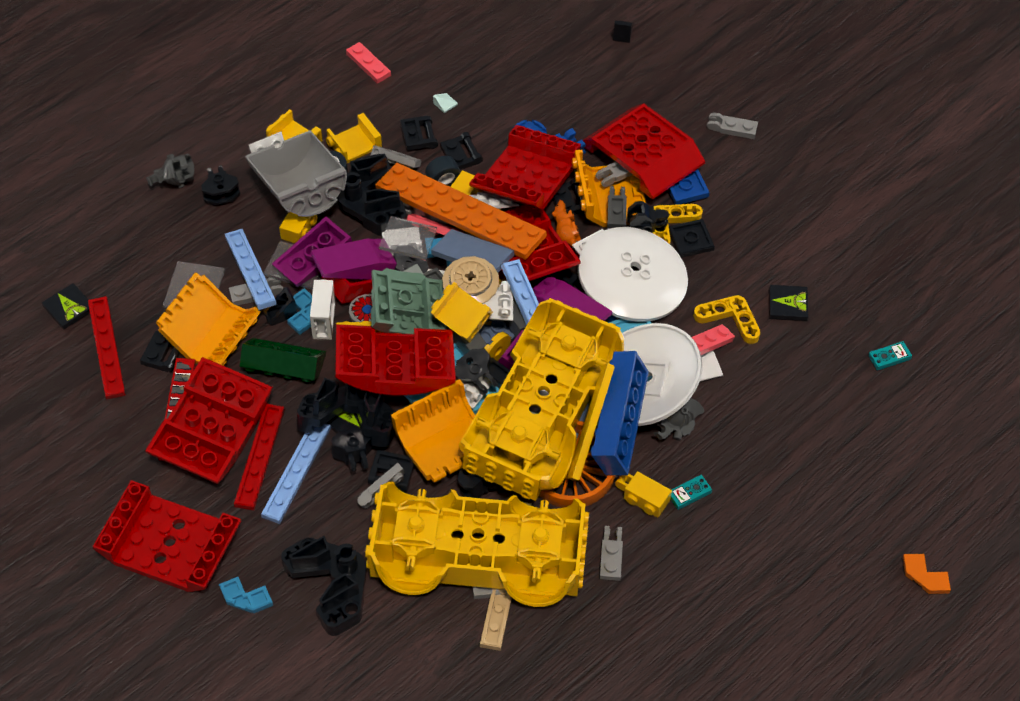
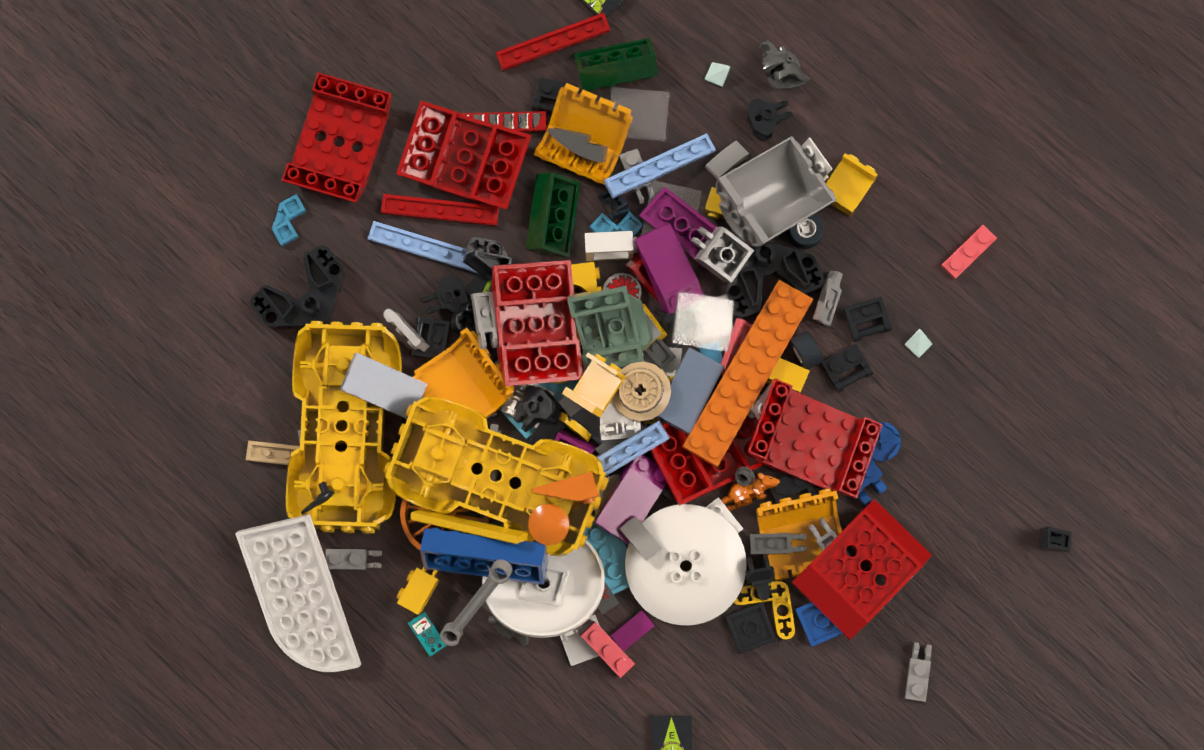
camera: 90 degrees right, 25 degrees up
(141, 296) = (616, 64): none -> dark green slope
(168, 222) = (717, 74): none -> light aqua slope
(217, 327) = (580, 144): none -> dark grey slope
(254, 219) = (727, 159): none -> light grey slope
(347, 212) = (711, 253): none -> light grey hinge
(356, 140) = (849, 249): yellow panel -> none
(386, 395) = (485, 318): none -> light grey hinge
(442, 490) = (381, 385): none -> tile
(551, 541) = (321, 498): none -> black bar
(559, 221) = (744, 476): none -> dark grey plate
(564, 317) = (571, 489): none -> orange slope
(596, 345) = (548, 524): none -> orange dish
(608, 294) = (640, 538): none -> light grey slope
(647, 588) = (298, 594): none -> white plate
(665, 426) = (476, 602): none -> light grey piece
(689, 322) = (632, 630): none -> magenta tile
(730, 310) = (655, 673): yellow beam -> none

